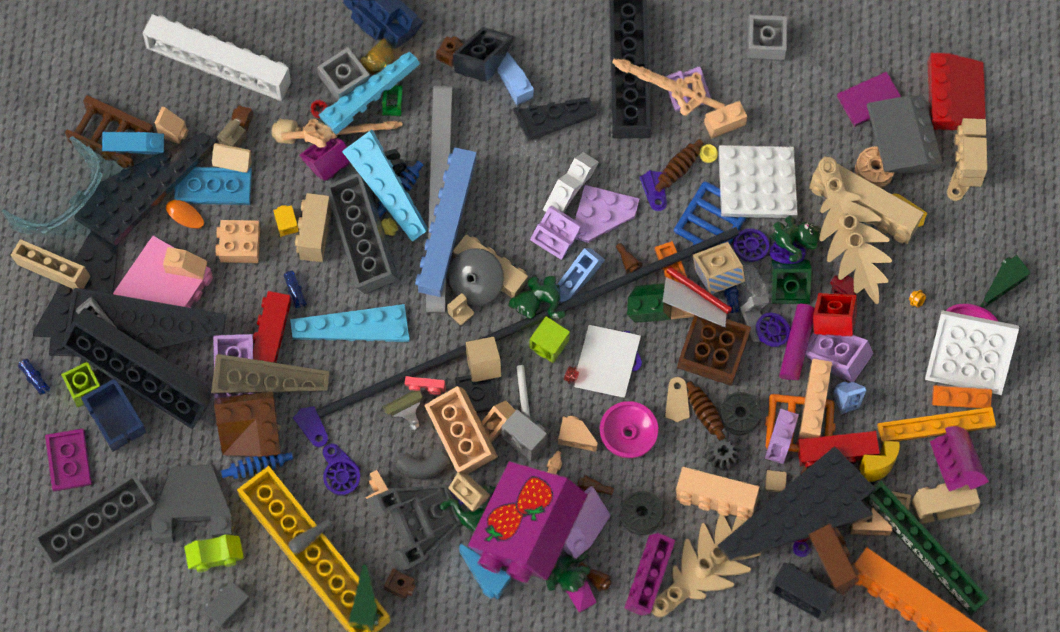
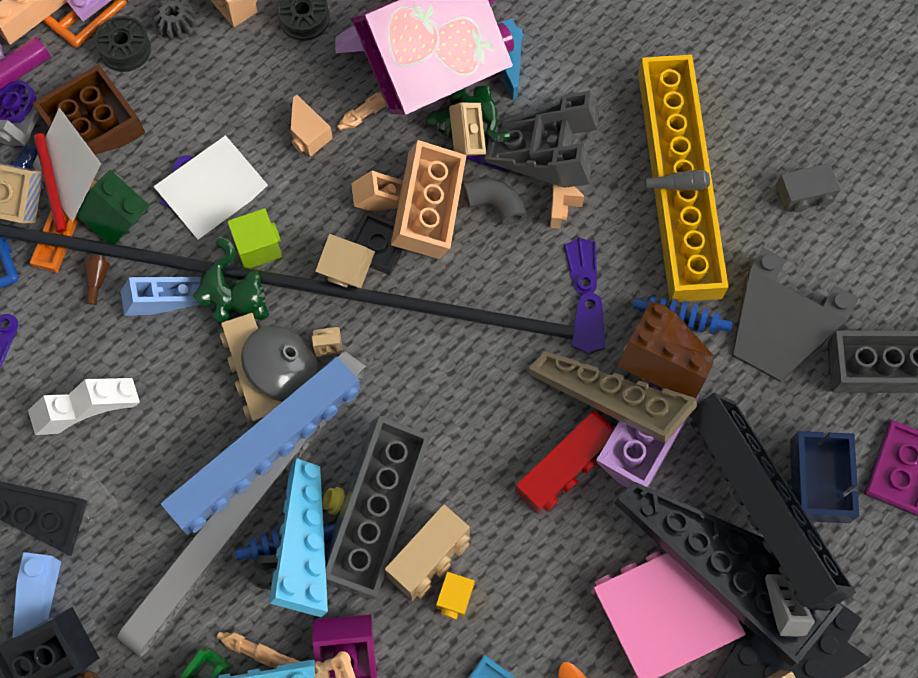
camera: 145 degrees left, 0 degrees up
(33, 376) = (897, 599): clear blue pin -> none
(80, 382) = (847, 540): lime head -> none
(184, 263) = (627, 608): light nougat slope -> none
(213, 552) = (803, 252): lime brick -> none
(238, 241) = (534, 604): light nougat brick -> none
(294, 289) = (502, 498): clear blue axle -> none
(341, 477) = (593, 244): dark purple wheel -> none
(364, 609) = (669, 68): dark green slope -> none
(372, 324) = (443, 398): medium azure wing -> none
(400, 591) = (606, 103): reddish brown brick -> none
(405, 407) = (470, 273): olive piece -> none
(433, 386) = (426, 267): coral plate -> none
(523, 389) = (328, 210): white bar -> none
(524, 434) = (361, 147): light grey brick -> none
(556, 232) = (146, 360): lavender slope -> none
(571, 374) = (261, 193): clear red plate -> none
(585, 482) = (335, 73): reddish brown cone -> none
(603, 211) = (77, 352): lavender plate -> none
(633, 418) = (247, 80): dark pink dish -> none
(677, 401) = (174, 100): tan piece -> none
(705, 410) = (155, 64): reddish brown piece -> none

